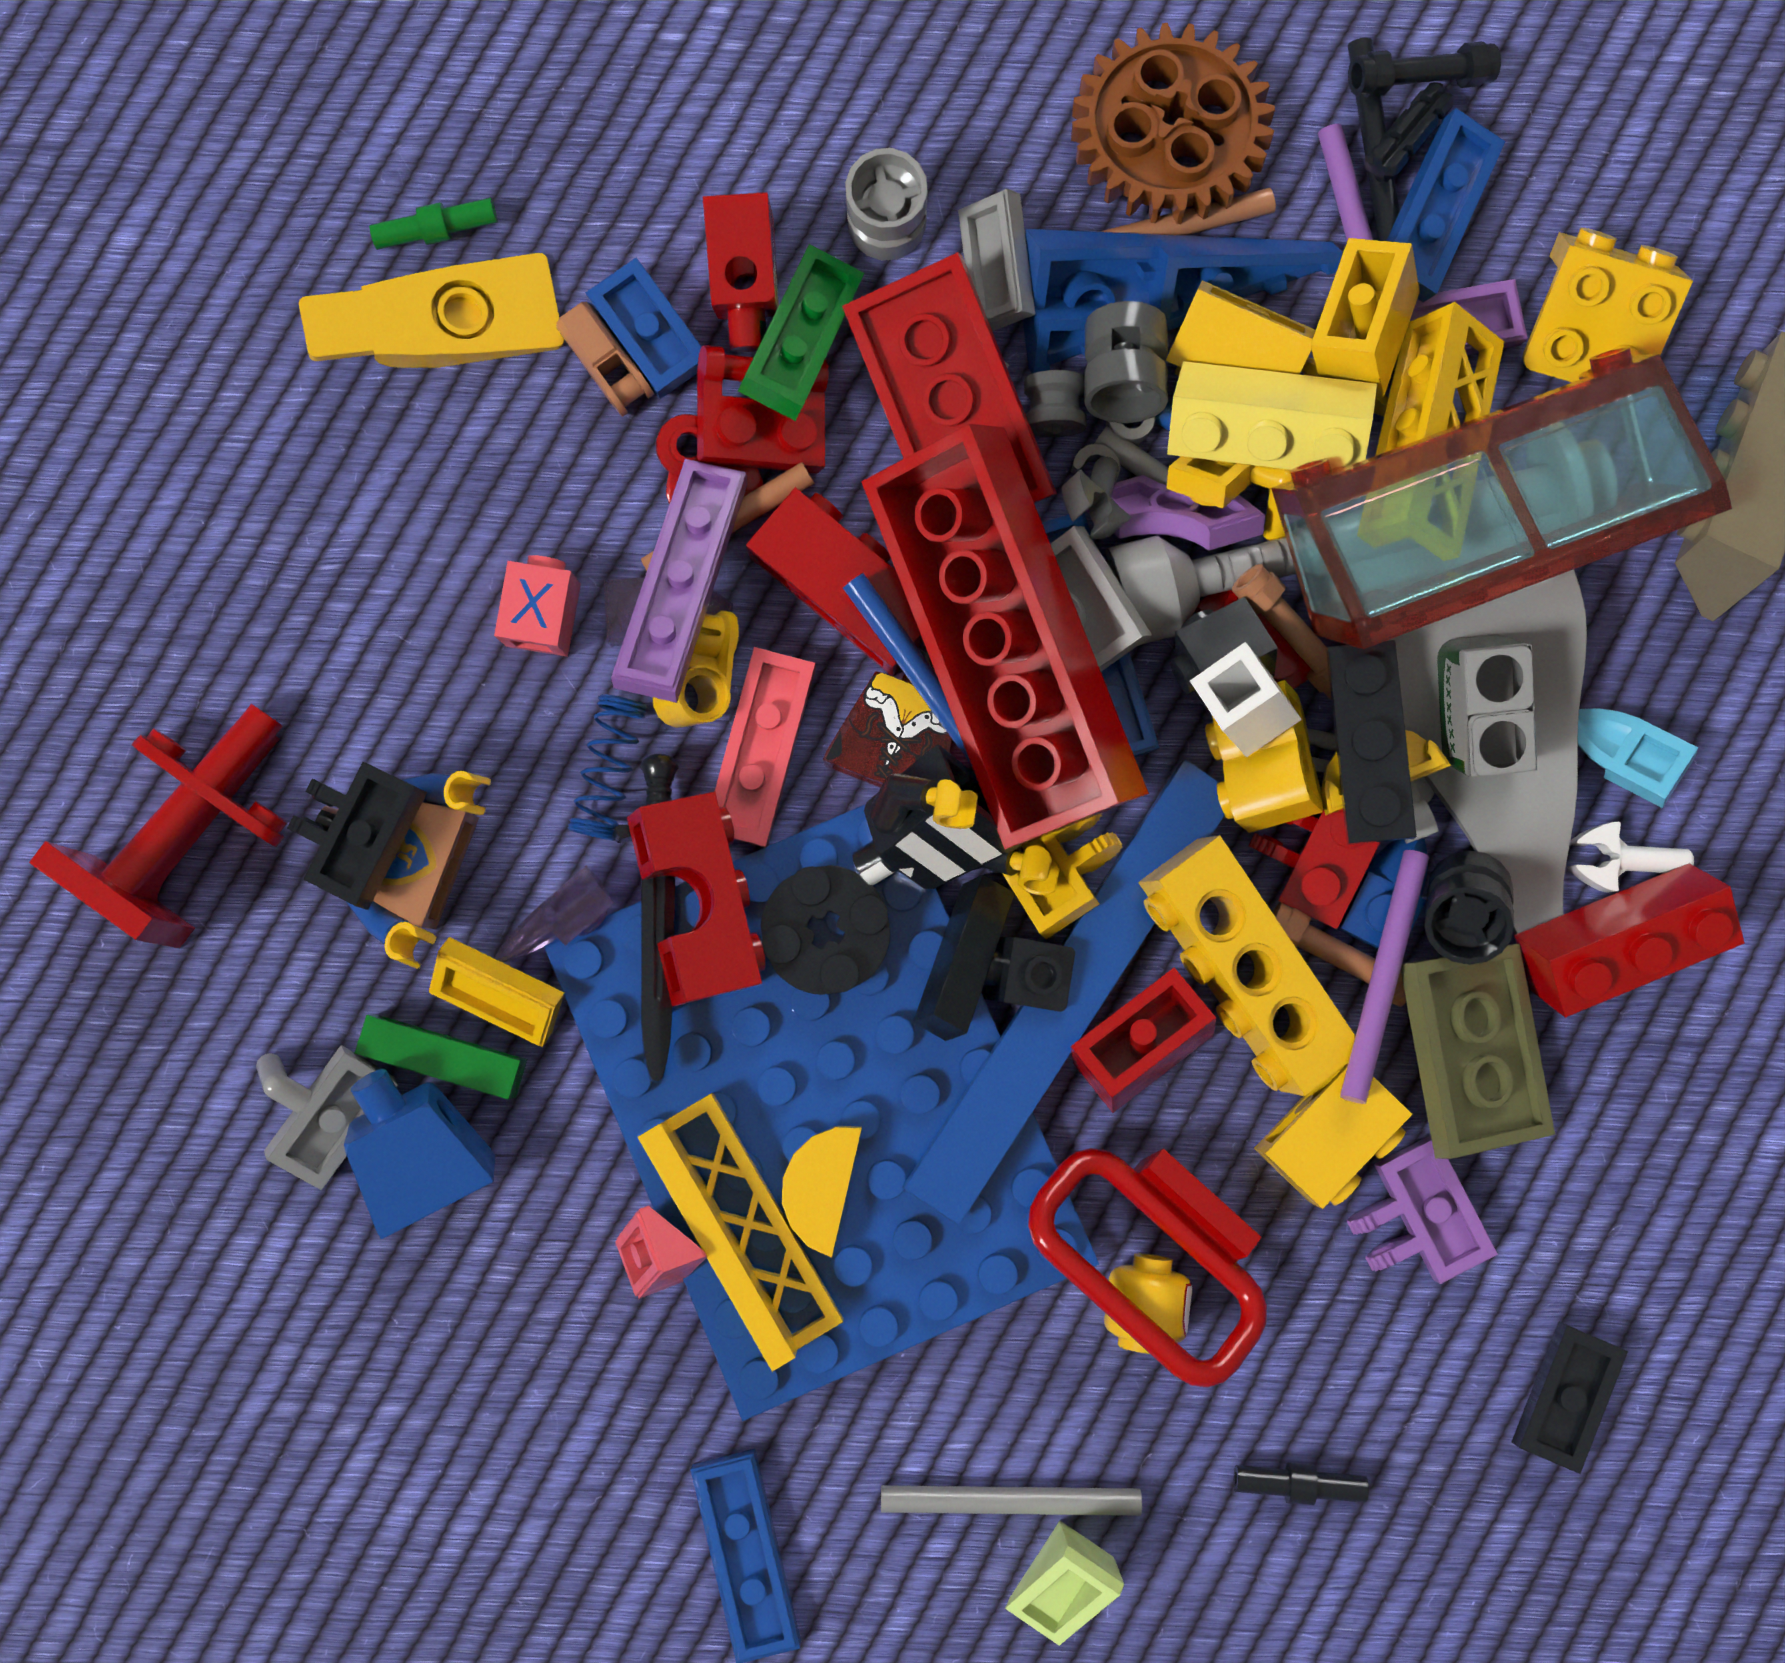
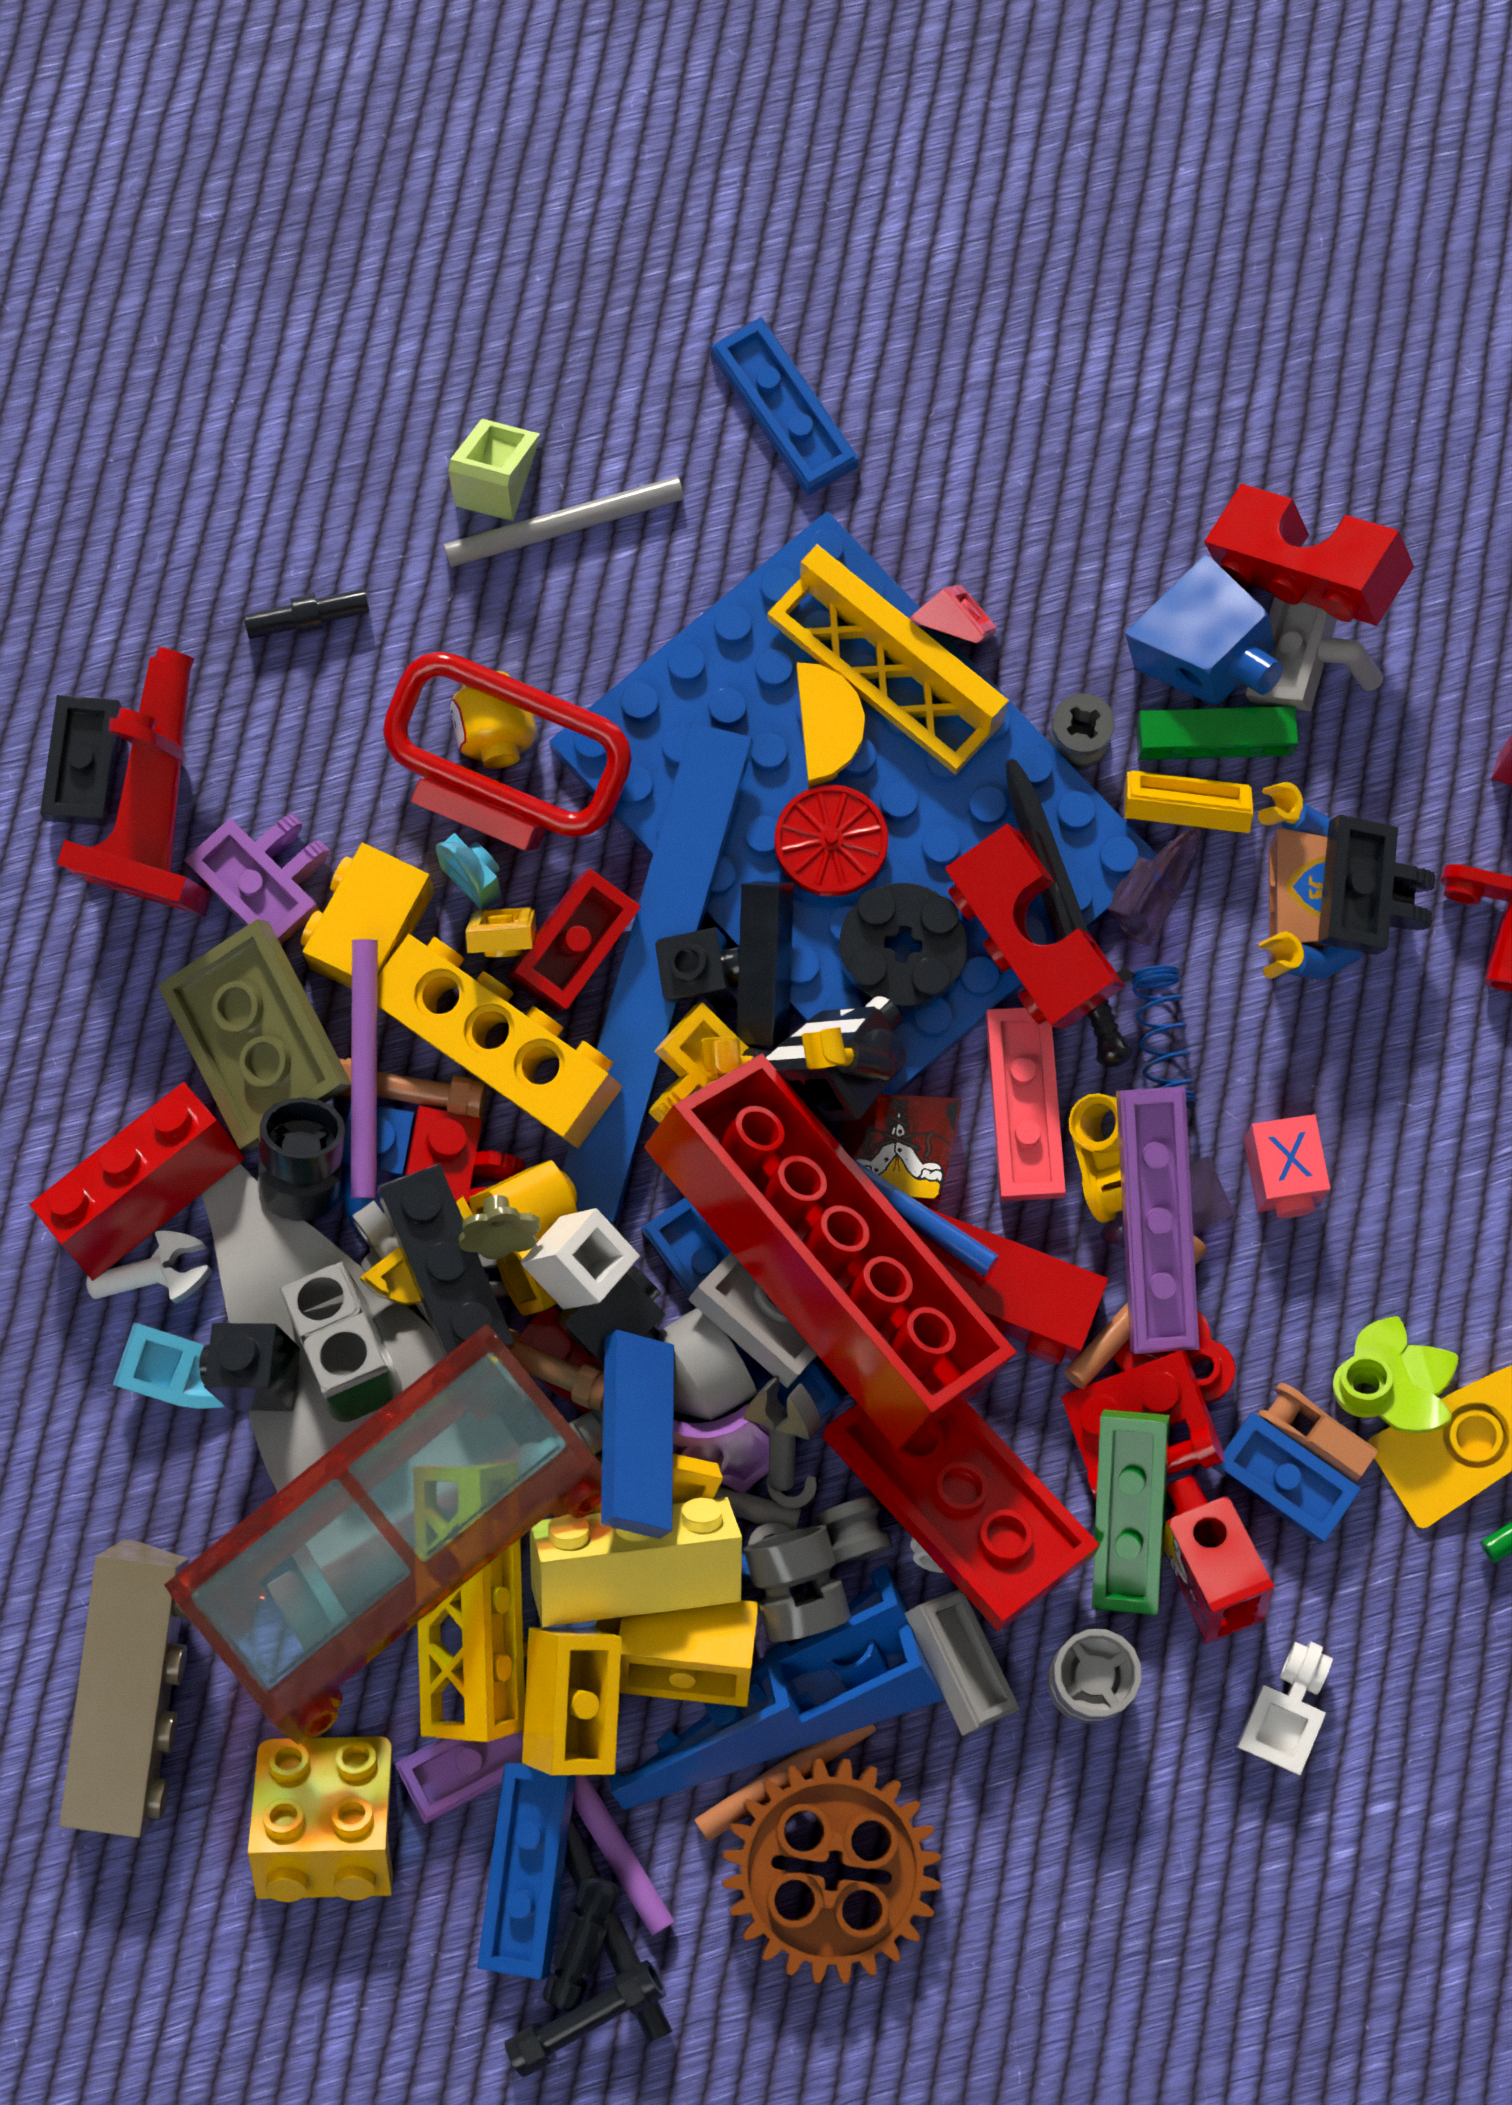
camera: 160 degrees right, 10 degrees down
(247, 1159) = (1346, 575): none -> red arch
(506, 384) = (1404, 1375): none -> lime plate
(583, 1098) = (1077, 743): none -> dark grey wheel
(732, 118) = (1280, 1724): none -> white plate
(858, 1062) = (831, 840): none -> red wheel
(1212, 1071) = (501, 931): none -> yellow plate
(1220, 1152) = (470, 870): none -> medium azure plate
(1243, 513) = (637, 1434): none -> blue tile
(1315, 754) = (499, 1229): none -> olive plant
(1551, 1266) = (140, 848): none -> red piece
(1582, 709) = (250, 1366): none -> black brick

